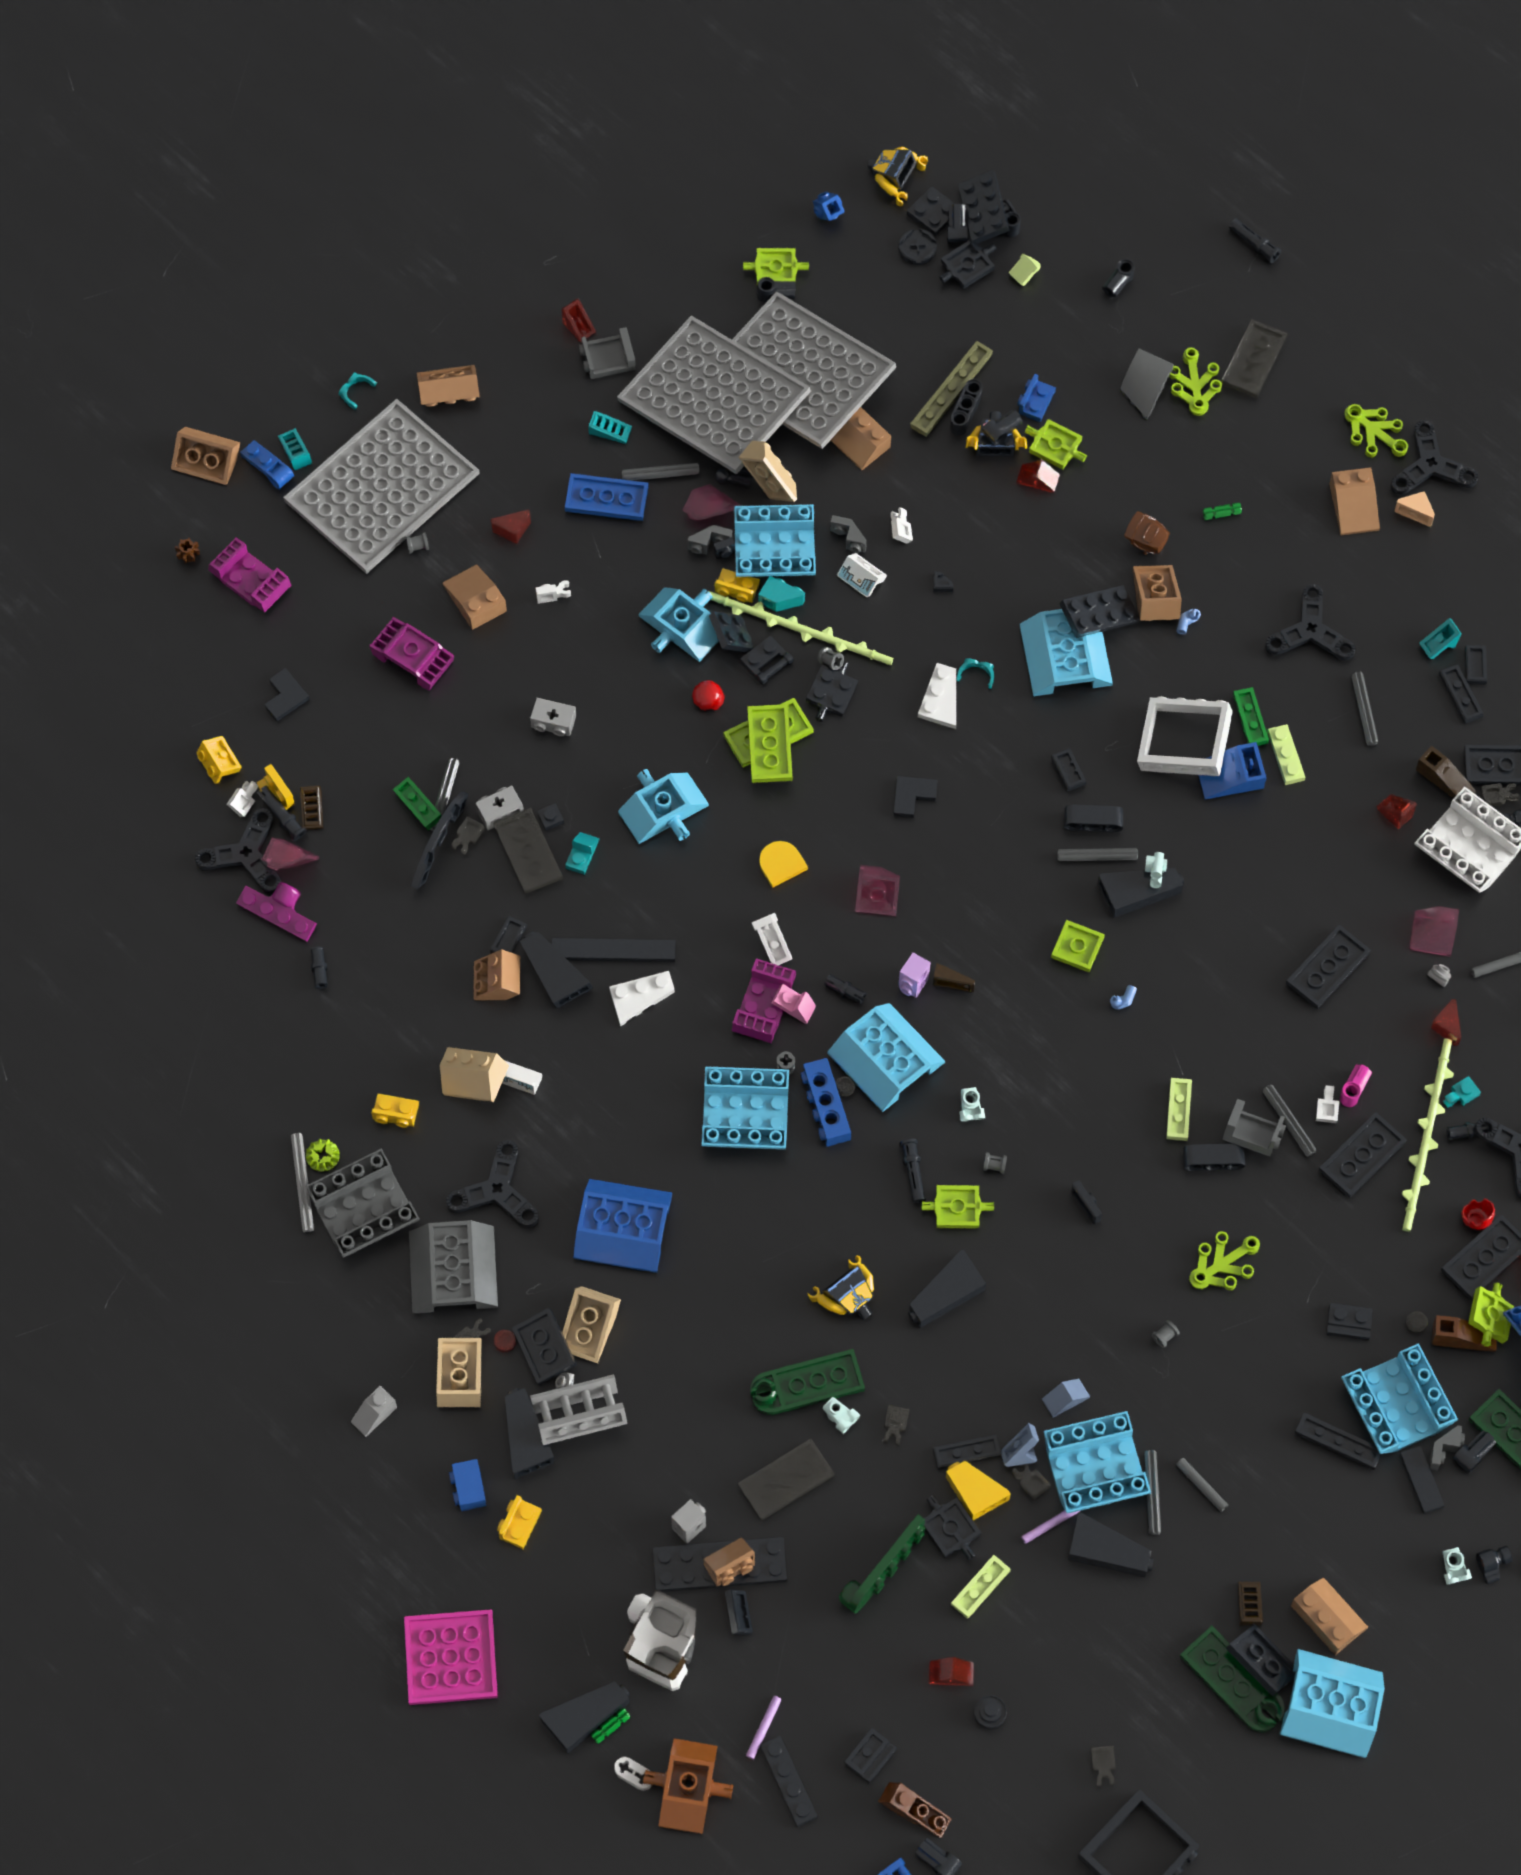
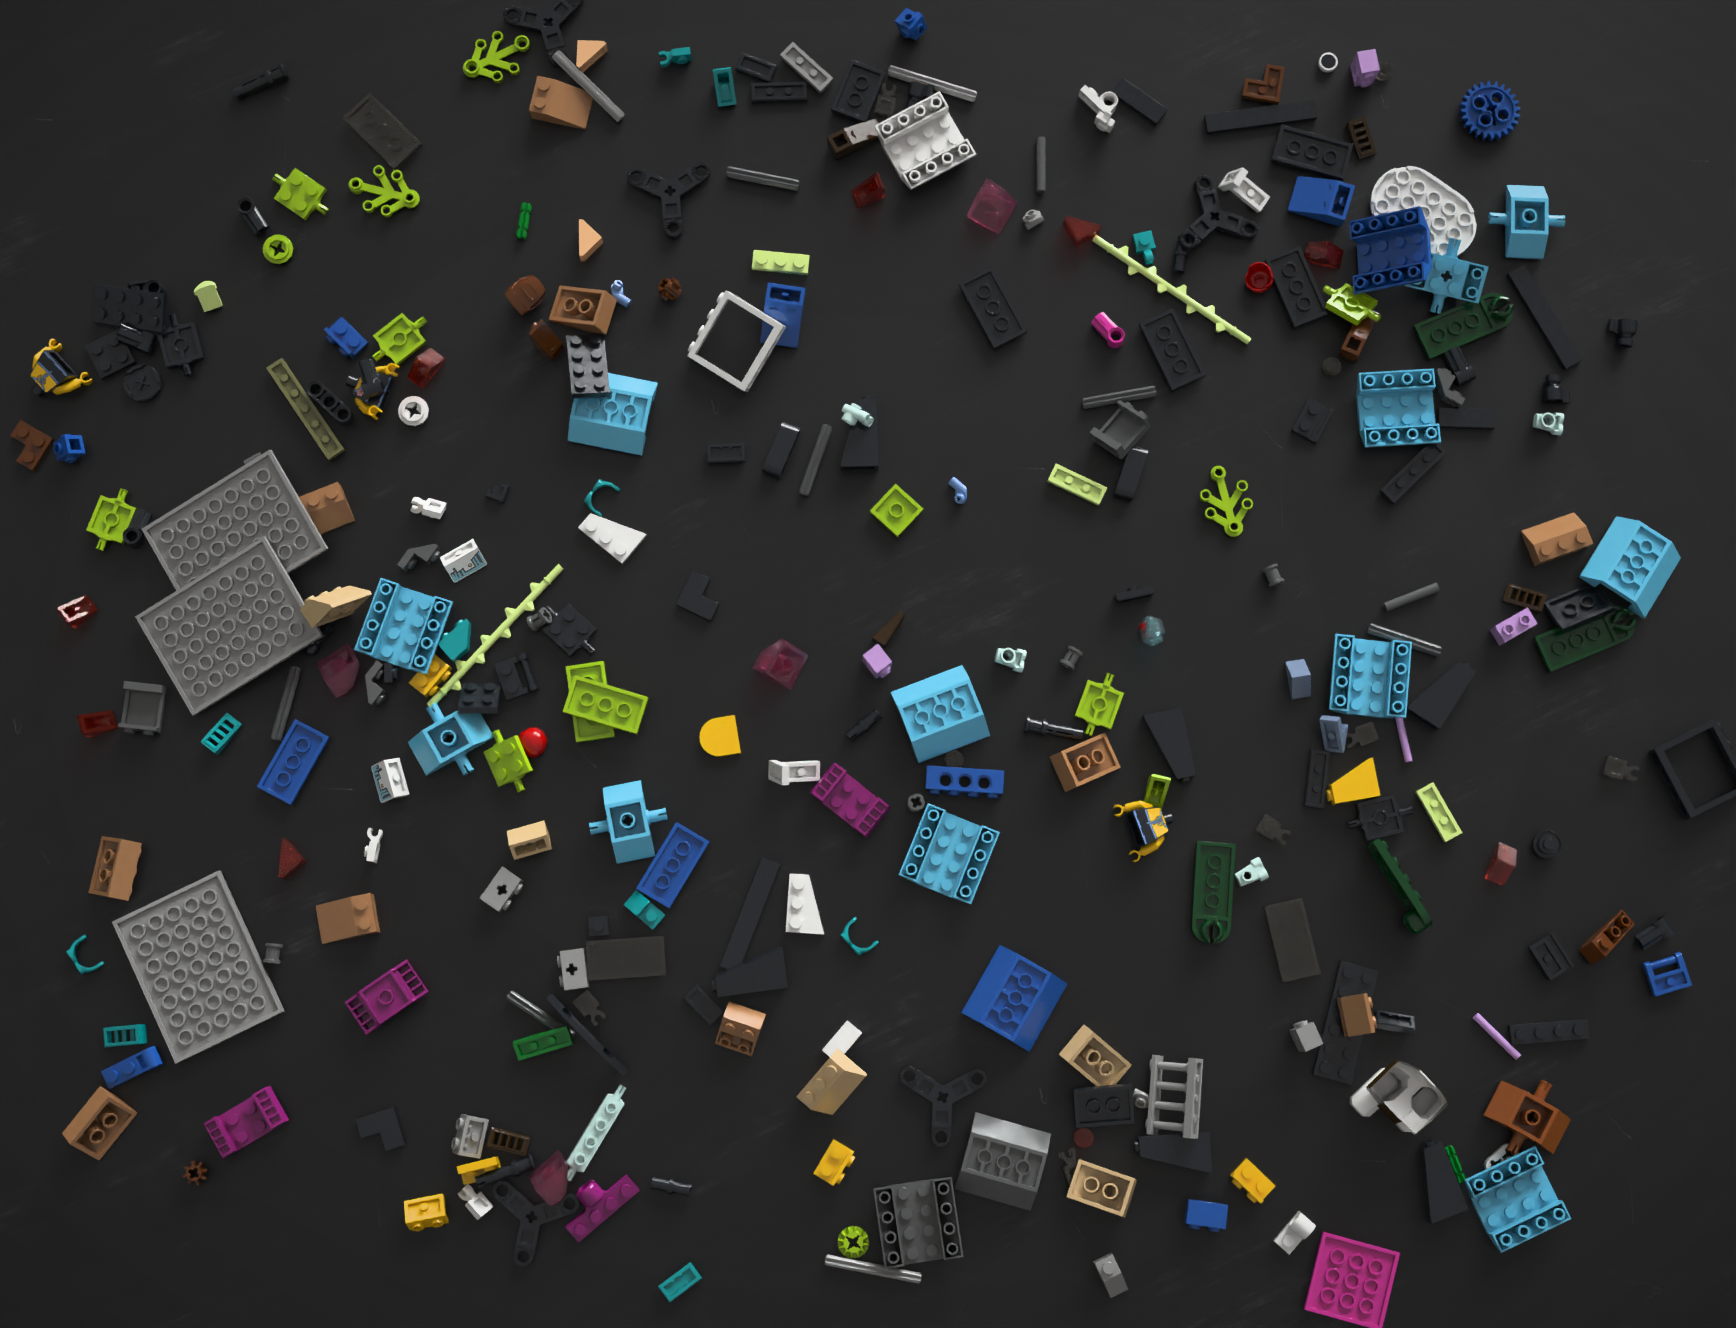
camera: 75 degrees left, 15 degrees up
(228, 1007) = (680, 1282): none -> teal plate
(304, 772) = (469, 1136): none -> light grey bracket
(347, 882) = (595, 1132): none -> light aqua plate
(485, 1584) = (1297, 1229): none -> white plate
(597, 1798) = (1515, 1200): none -> medium azure slope
(610, 722) = (529, 840): none -> tan brick
(622, 585) = (390, 779): none -> white panel
(626, 1044) = (858, 950): none -> teal cap
(635, 861) = (672, 865): none -> blue plate
(676, 267) = (77, 611): none -> clear red slope
(680, 679) = (508, 761): none -> lime plate
(793, 1003) = (862, 775): bright pink slope -> none
(821, 181) = (36, 445): none -> reddish brown plate
(890, 1291) = (1156, 790): none -> lime slope
(892, 1212) = (1085, 762): none -> medium nougat slope
(998, 479) = (410, 403): none -> white gear
(1056, 1232) = (1152, 630): none -> clear light blue head
(1104, 308) = (276, 241): none -> lime gear
(1108, 564) = (545, 340): none -> reddish brown slope
(1145, 381) = (368, 234): dark grey slope -> none
(1160, 312) = (300, 194): none -> lime plate
(1211, 660) = (669, 289): none -> reddish brown gear
(1213, 1598) = (1513, 626): none -> lavender brick
(1226, 572) = (588, 240): none -> light nougat slope
(1250, 716) = (735, 277): green plate -> none
(1327, 1108) = (1121, 361): white plate -> none
(1383, 519) = (588, 85): none -> light grey axle
(1454, 589) = (677, 55): none -> teal plate
(1497, 709) = (806, 67): none -> light grey plate

